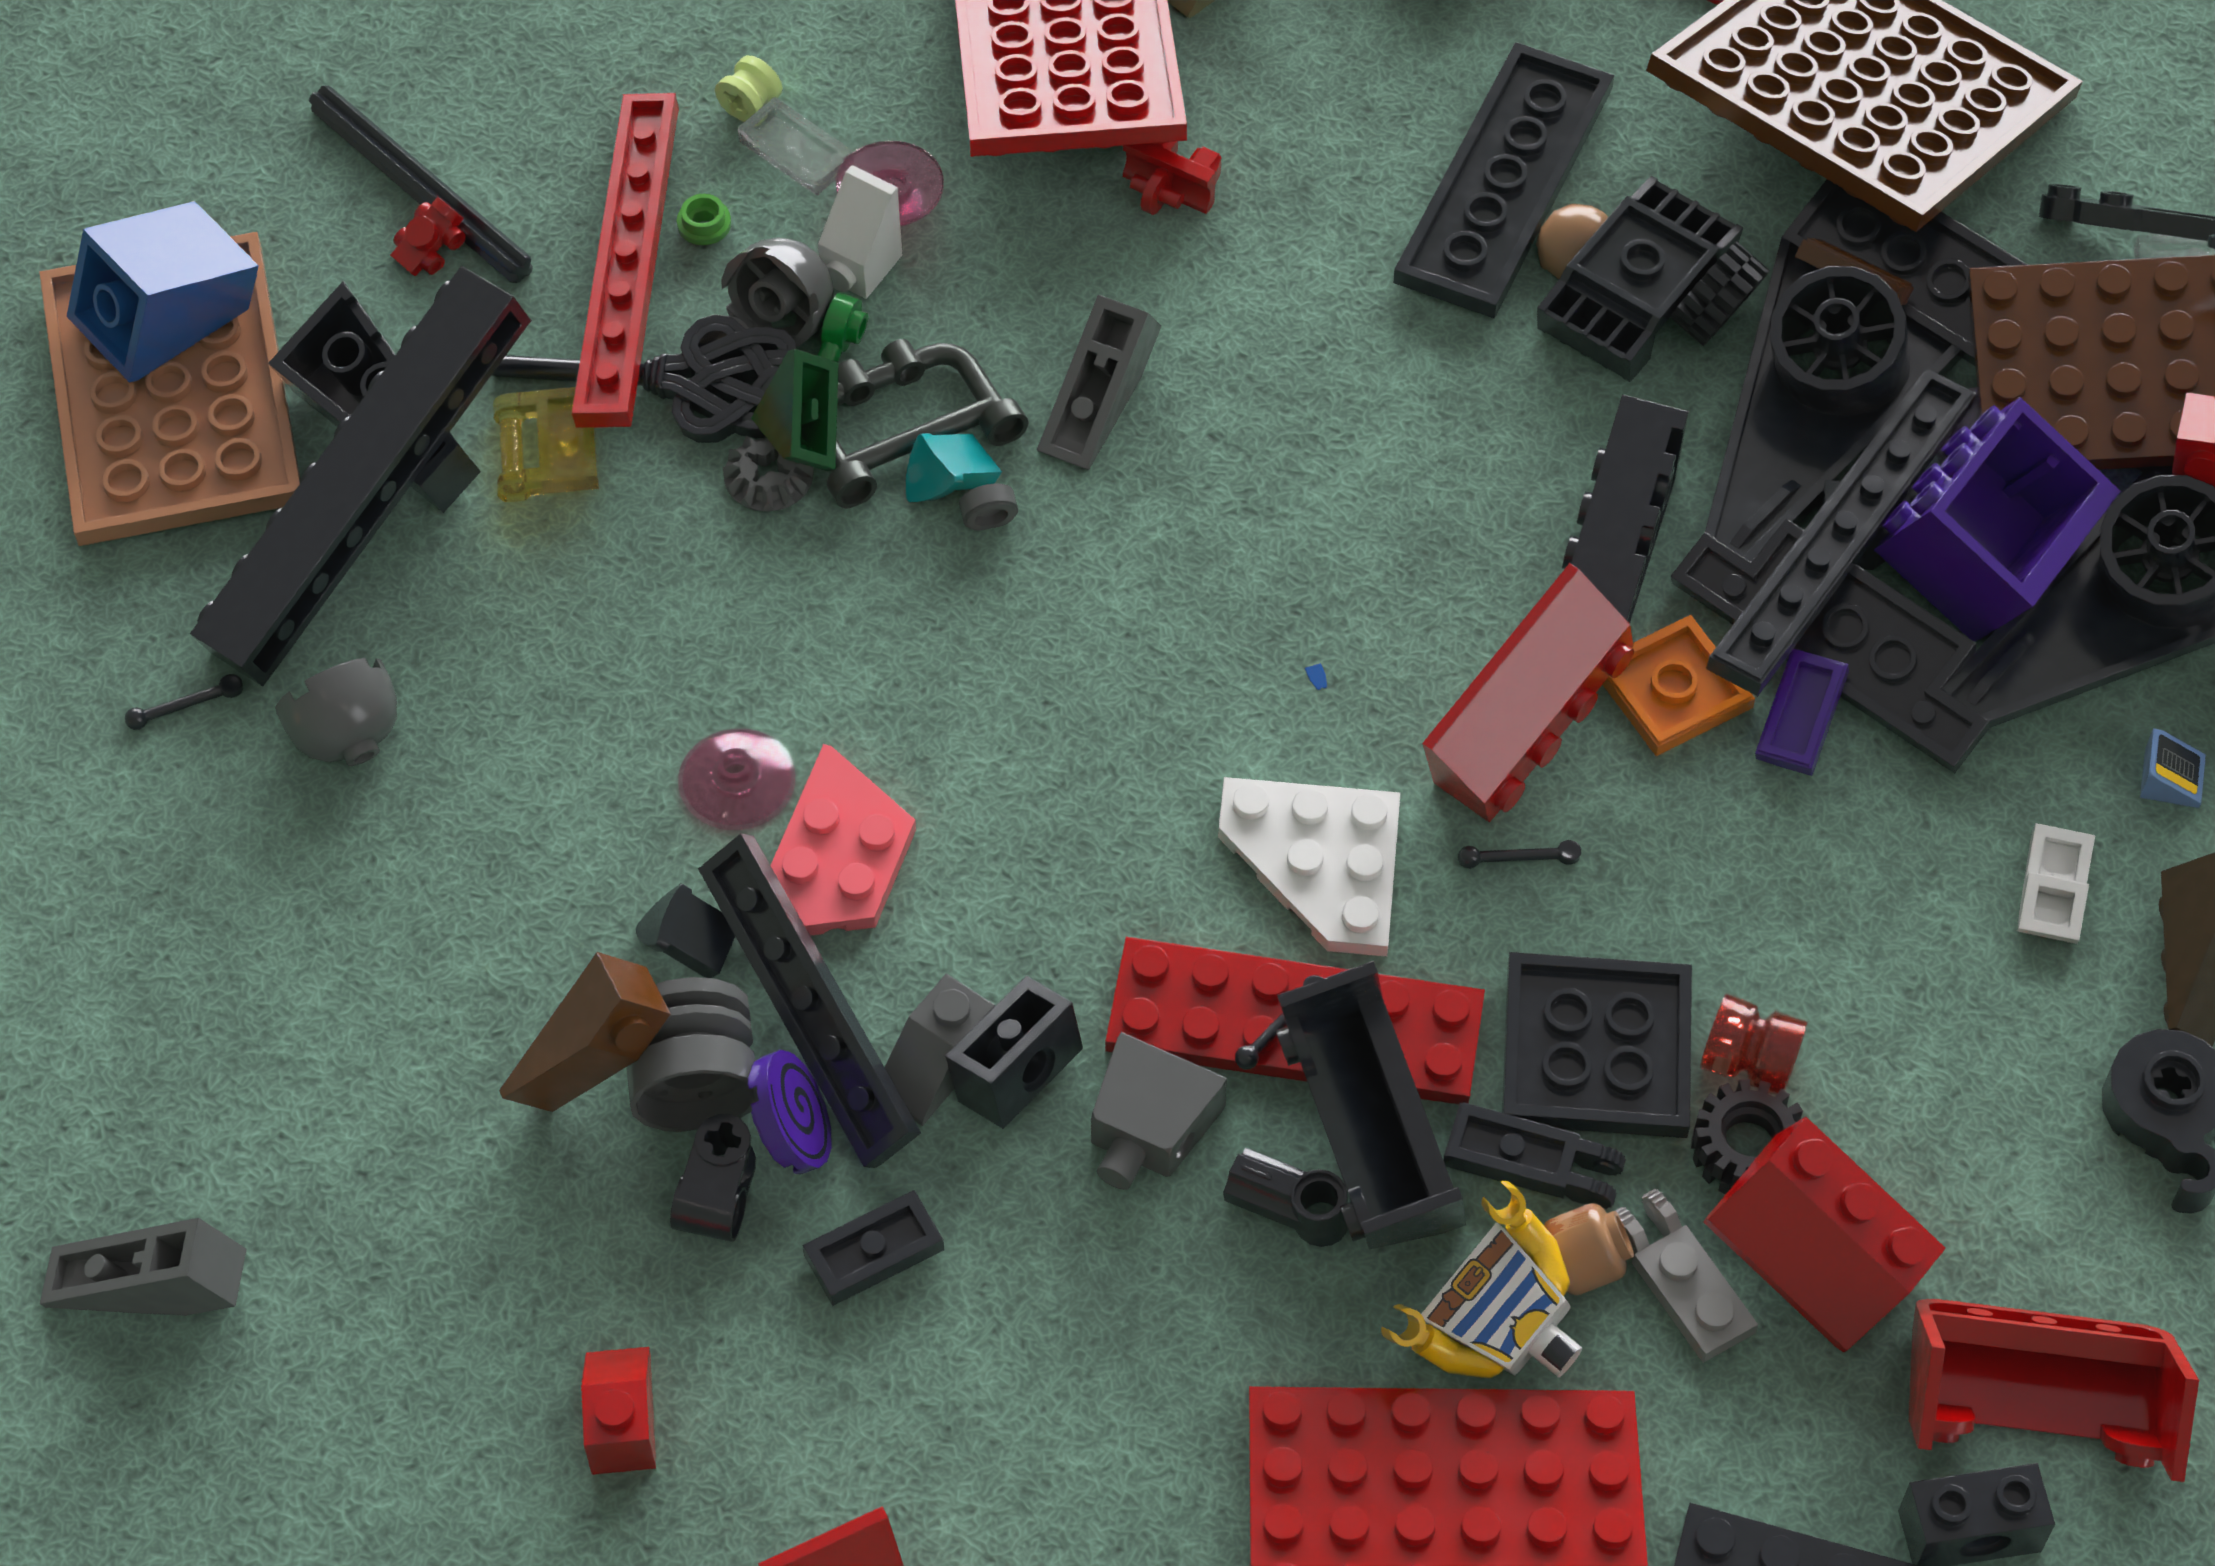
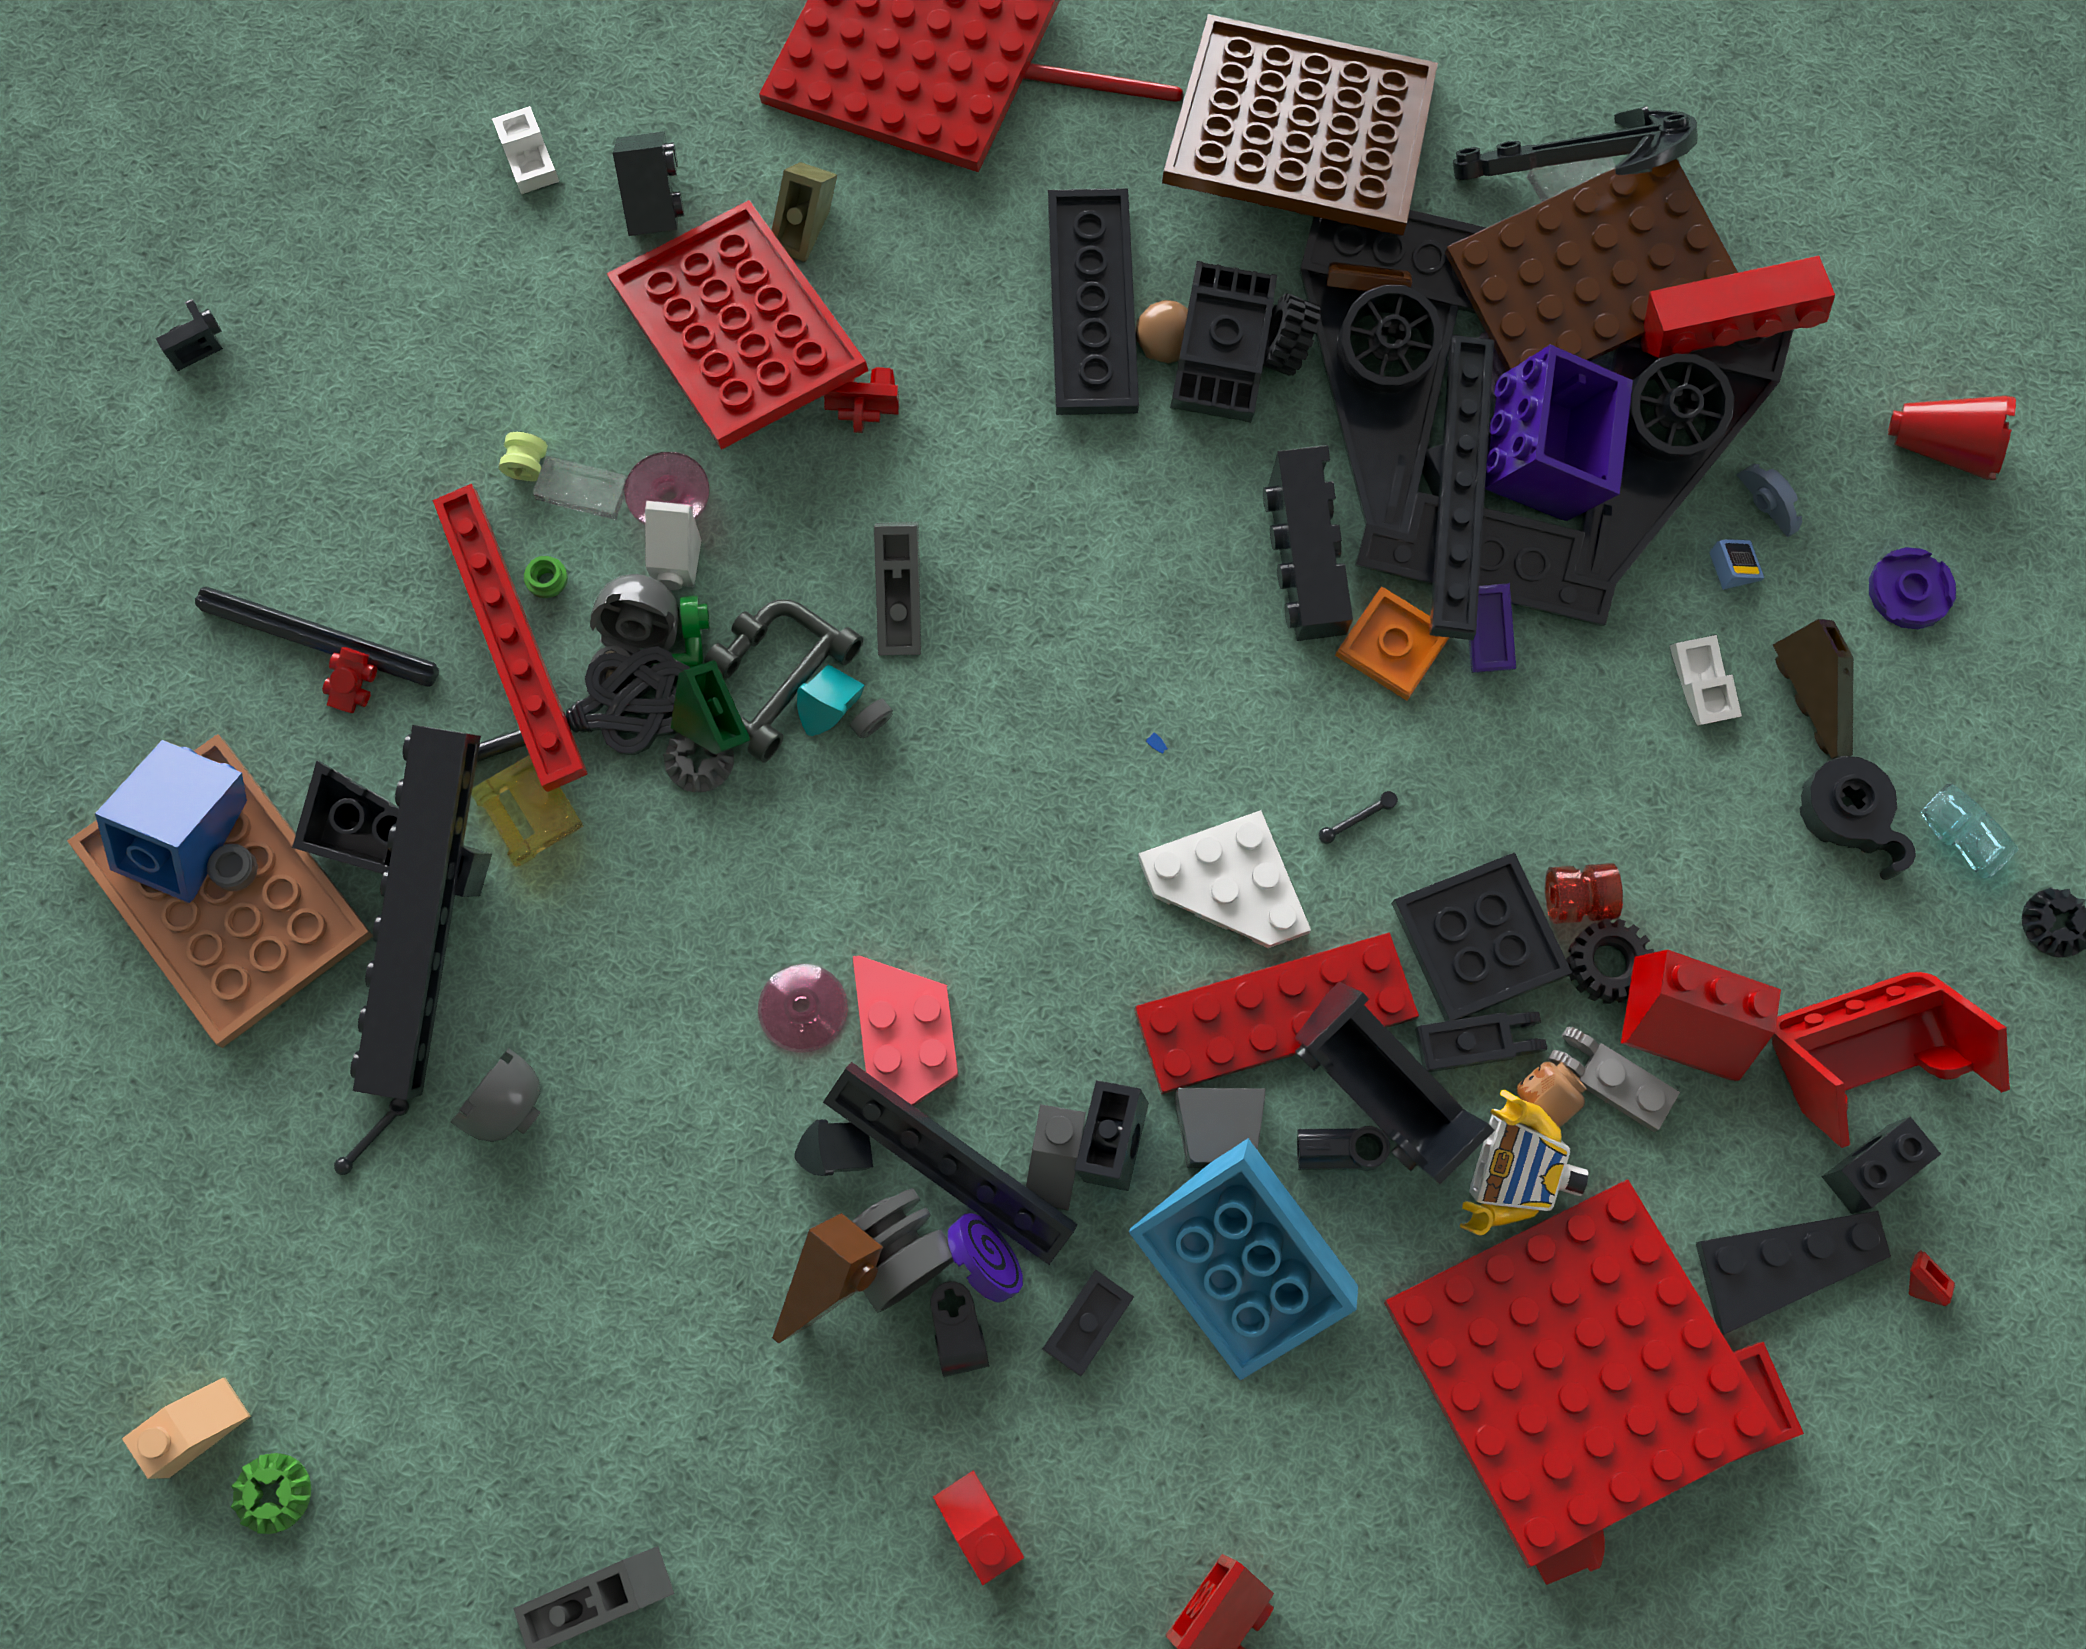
camera: 30 degrees left, 15 degrees up
(194, 364) = (232, 867): none -> dark grey tile
(1096, 1250) = (1246, 1261): none -> dark azure slope
(1247, 1056) = (1283, 991): black hinge -> none
(1529, 696) = (1324, 706): slope -> none

